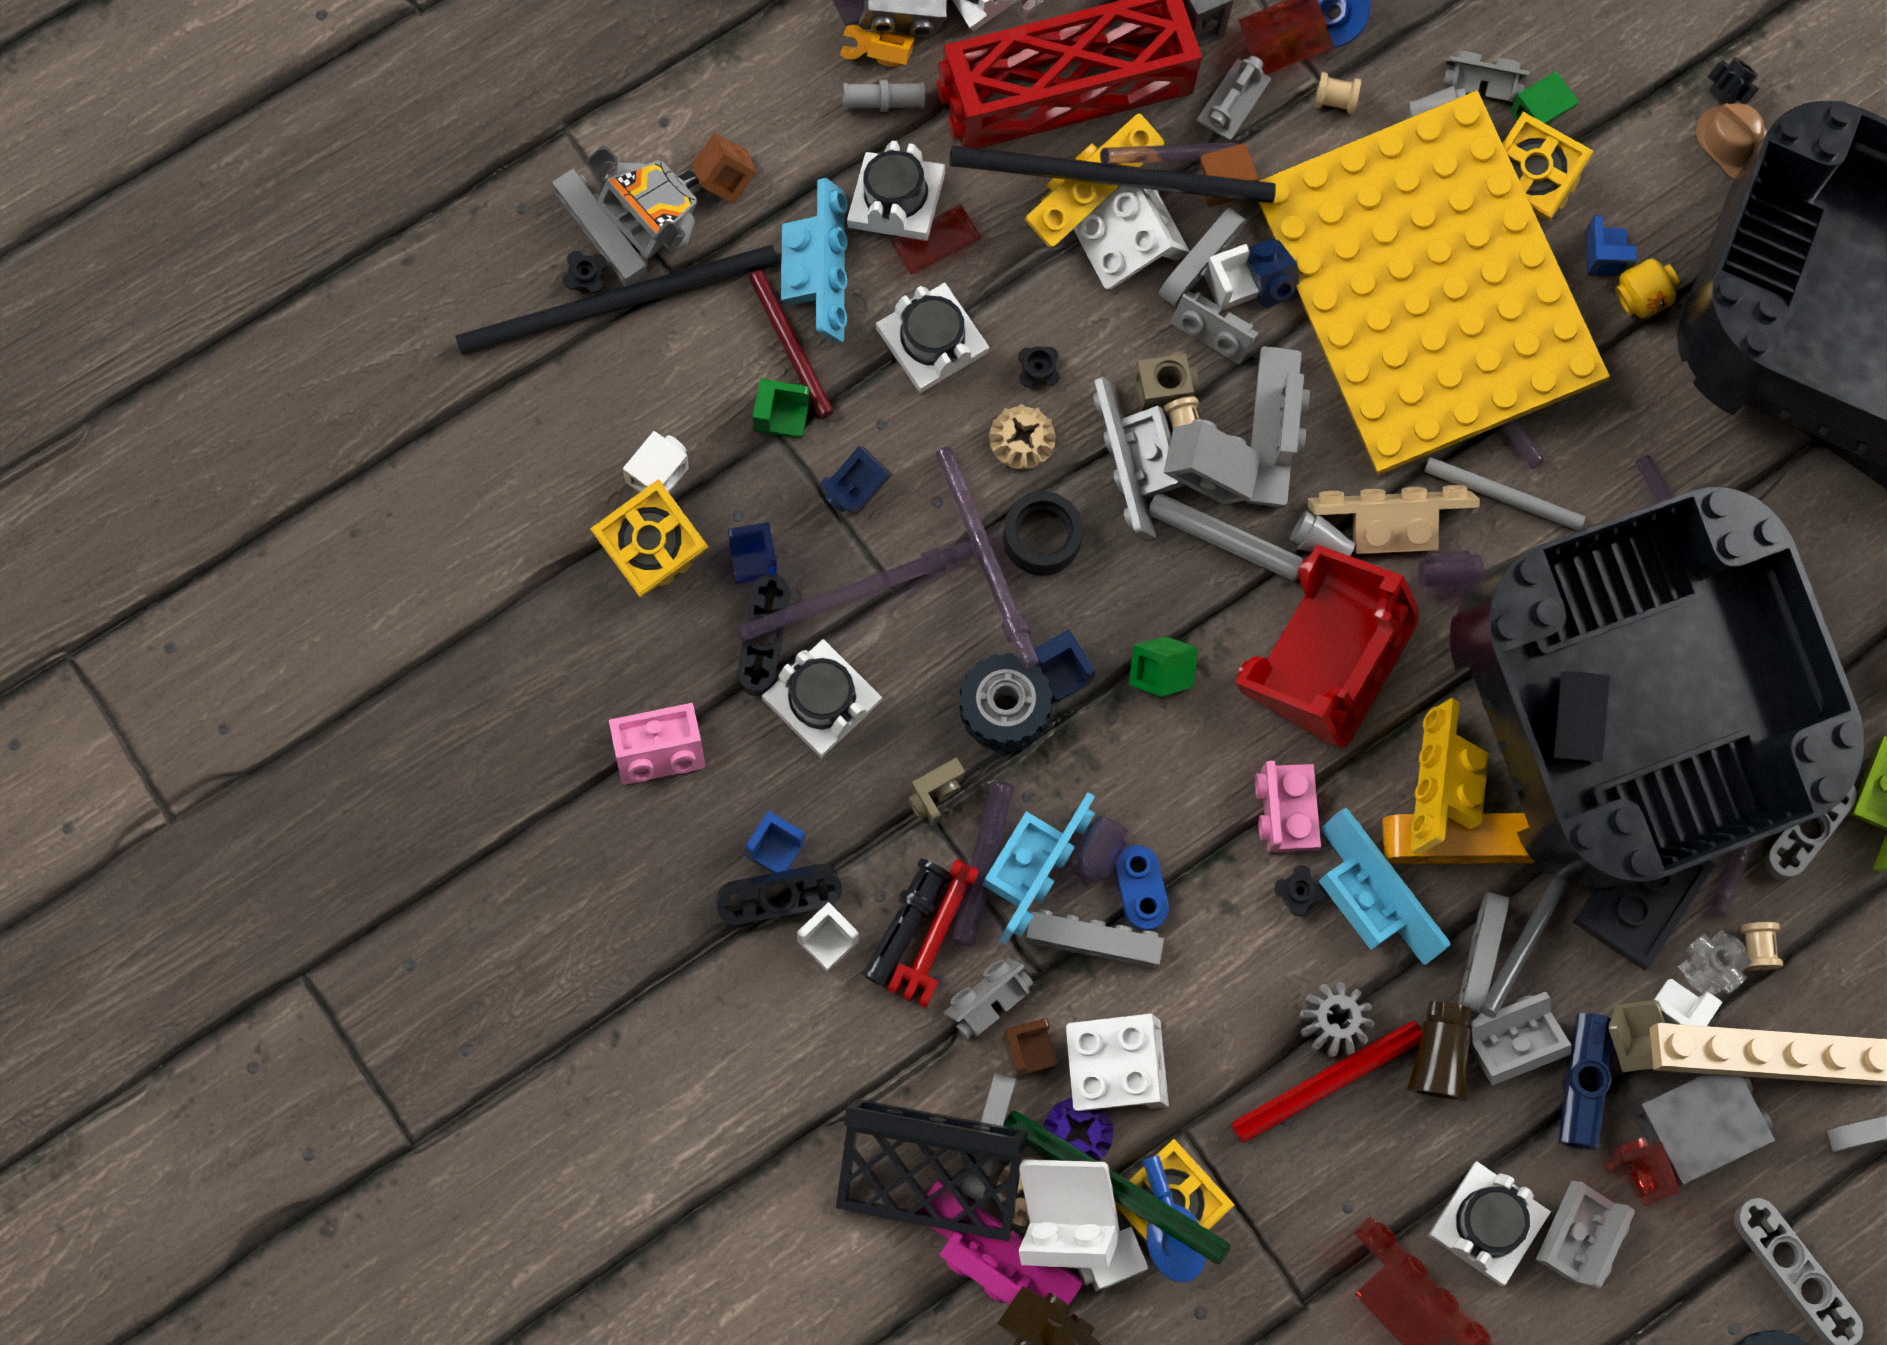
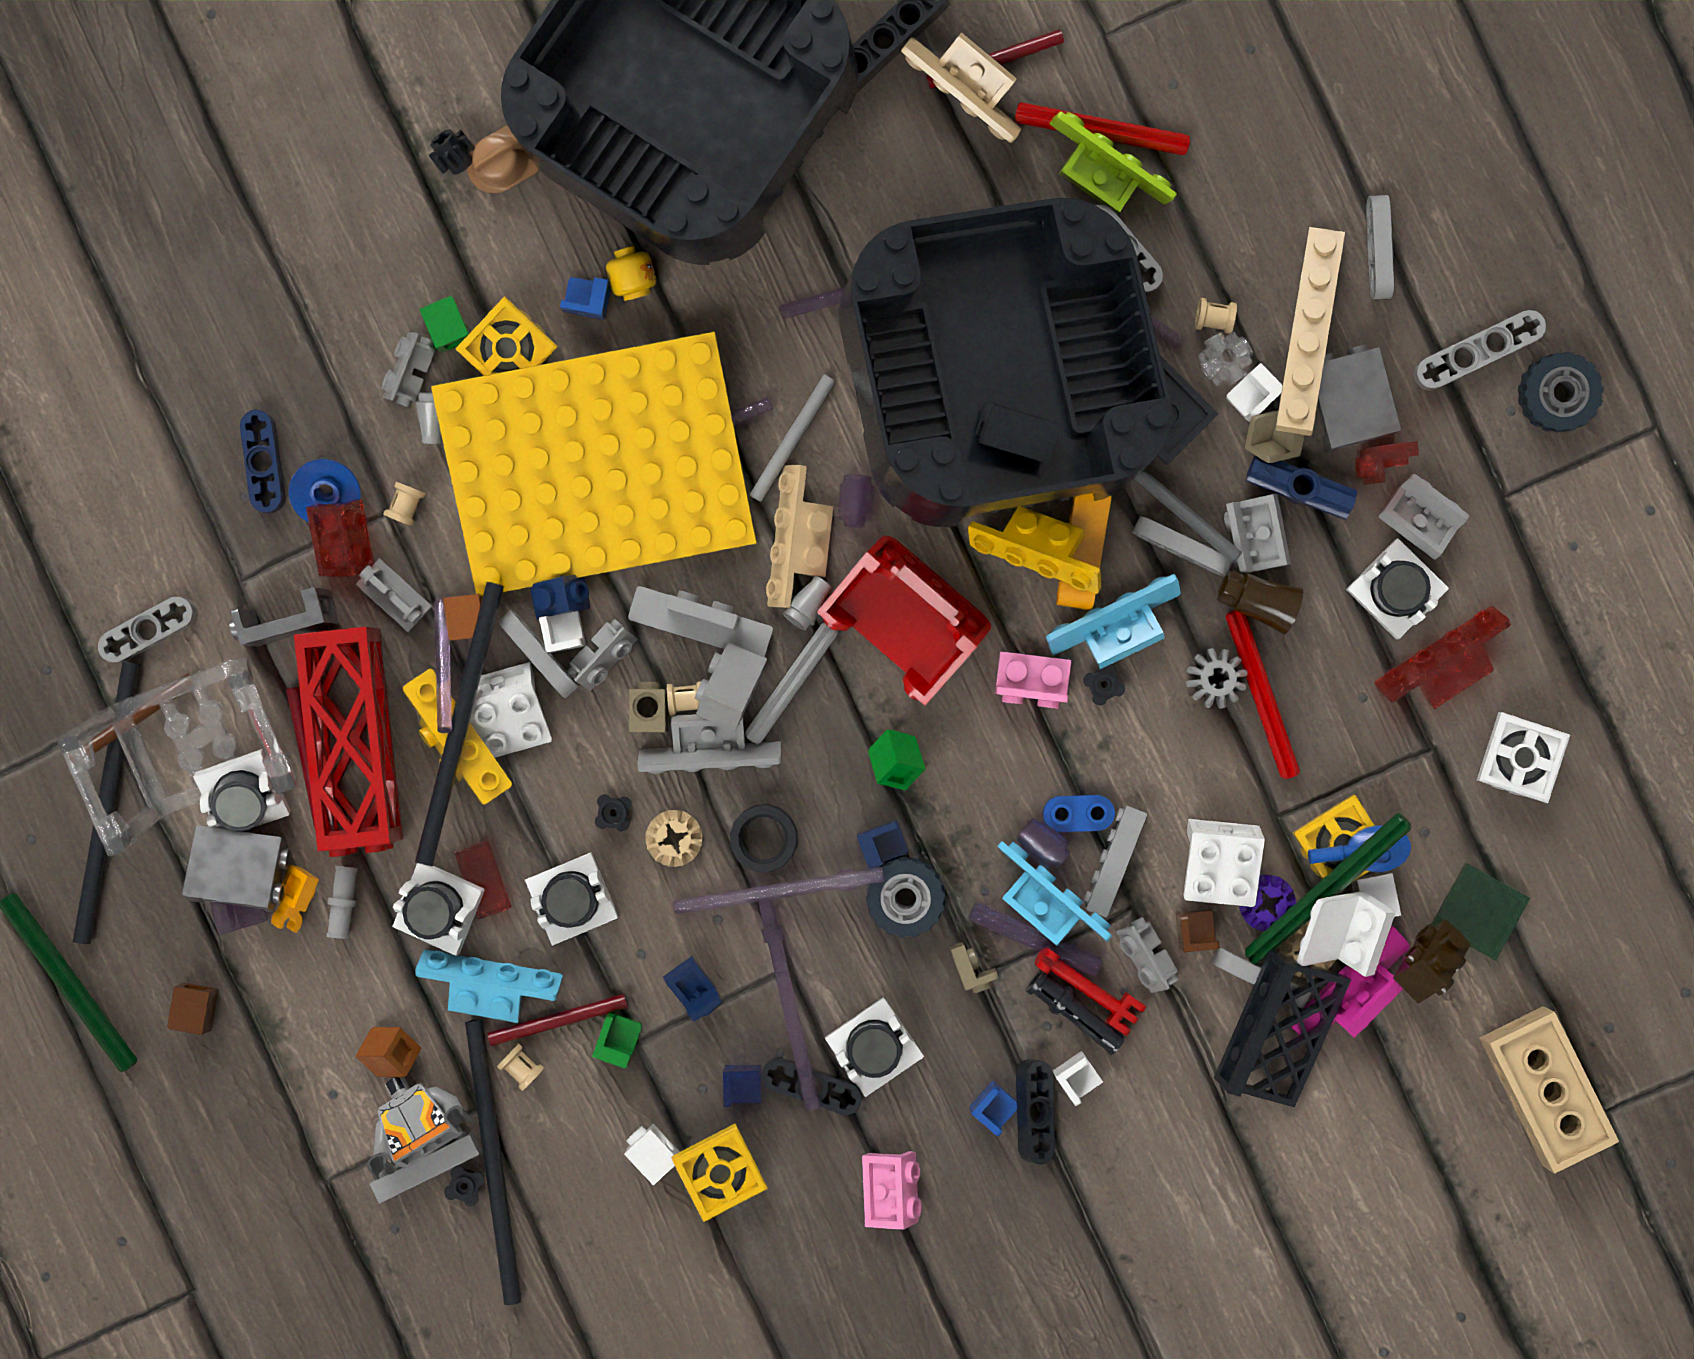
camera: 70 degrees left, 15 degrees up
(731, 309) = (520, 1067): none -> tan bush

